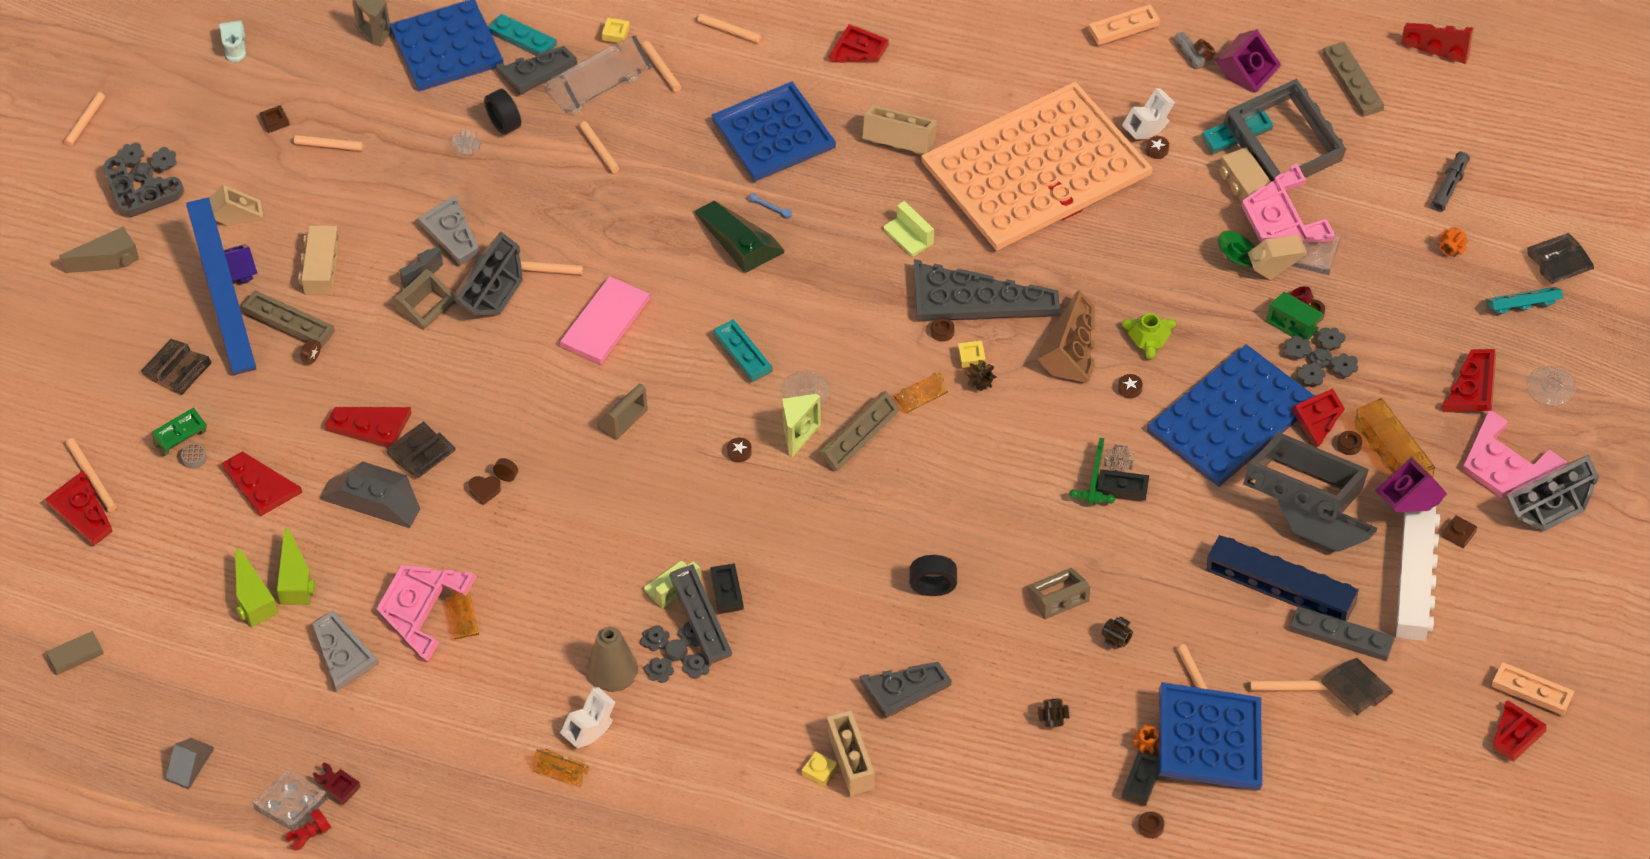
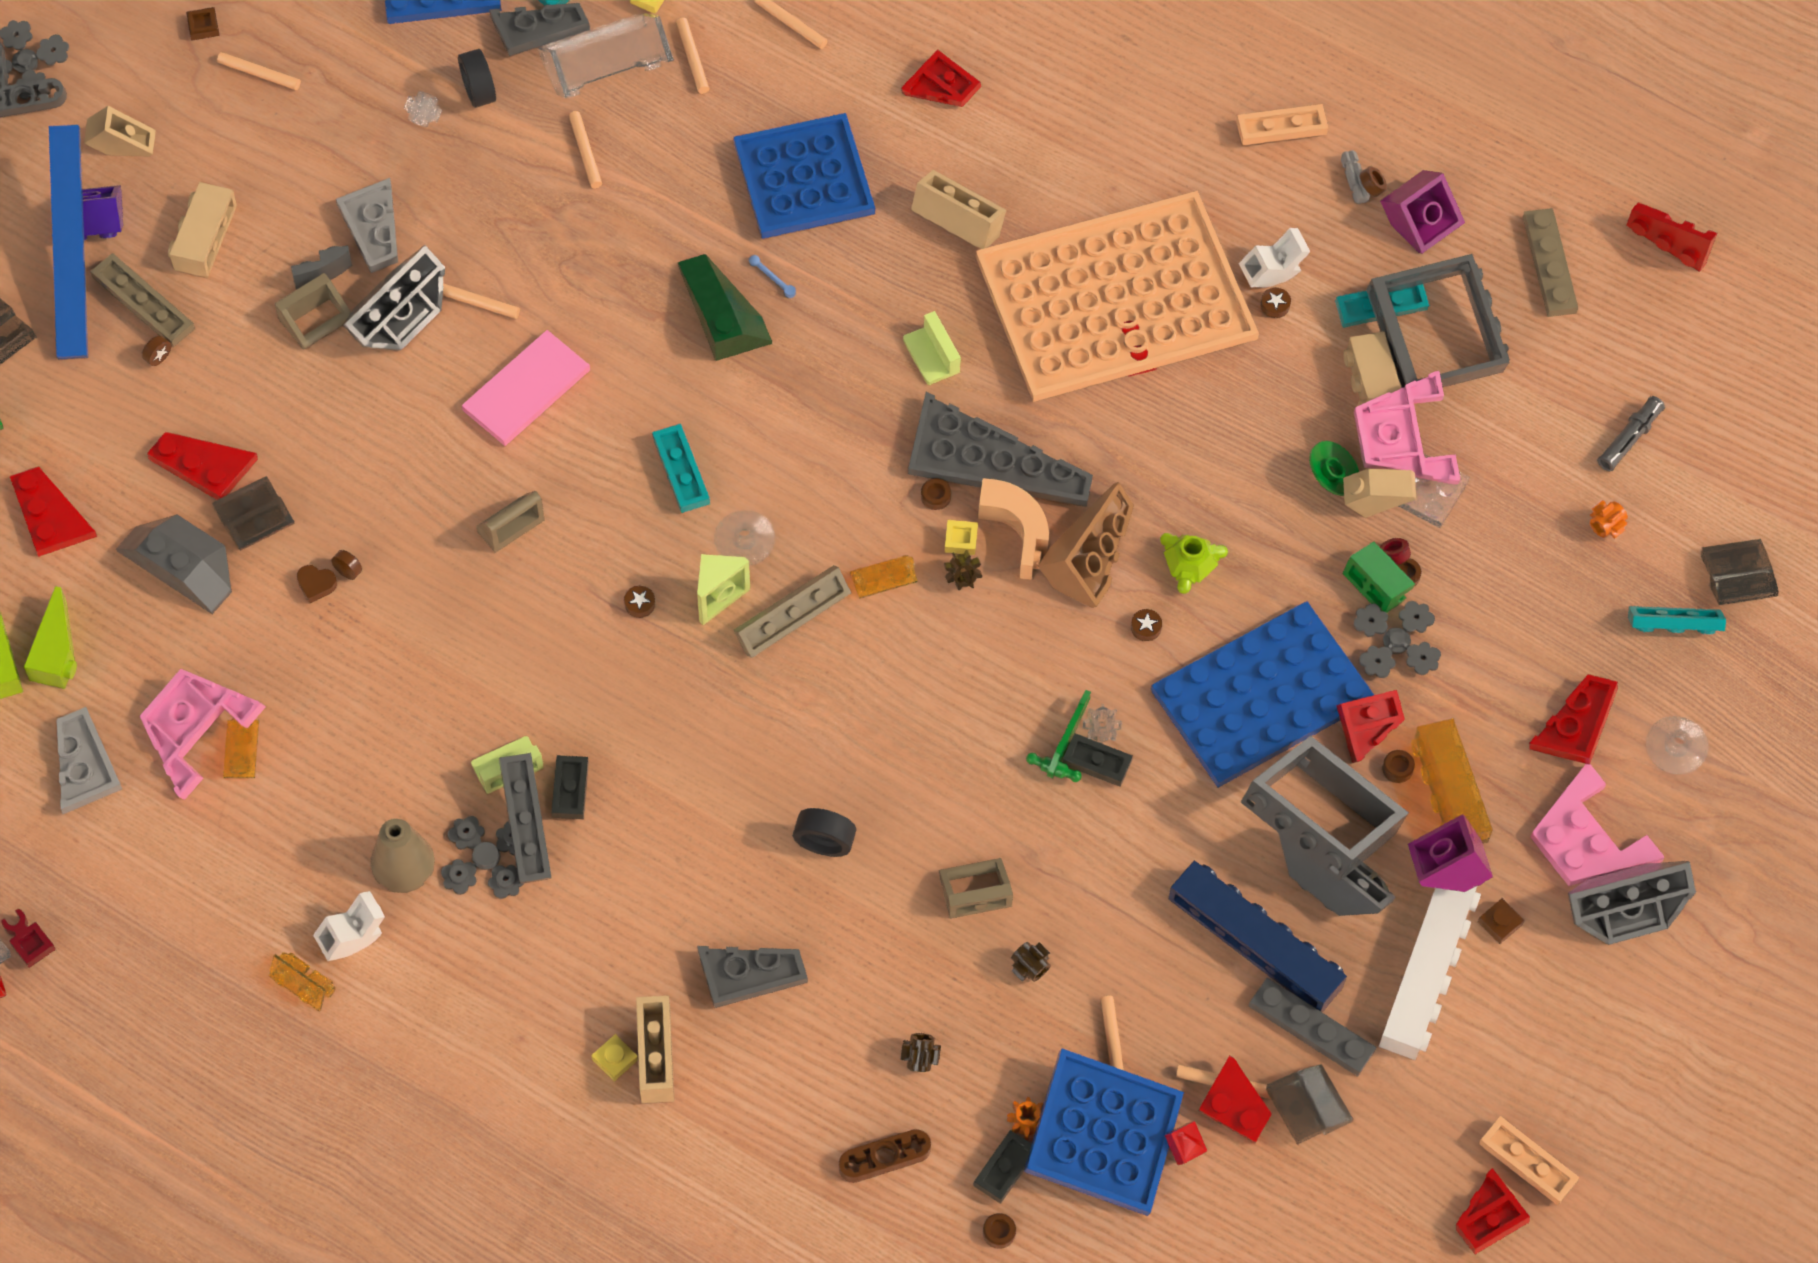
camera: 10 degrees right, 10 degrees up
(1011, 327) = (1018, 509): none -> light nougat arch
(1053, 781) = (859, 1156): none -> reddish brown beam
(1273, 731) = (1186, 1143): none -> red tile
(1302, 696) = (1236, 1102): none -> red wing

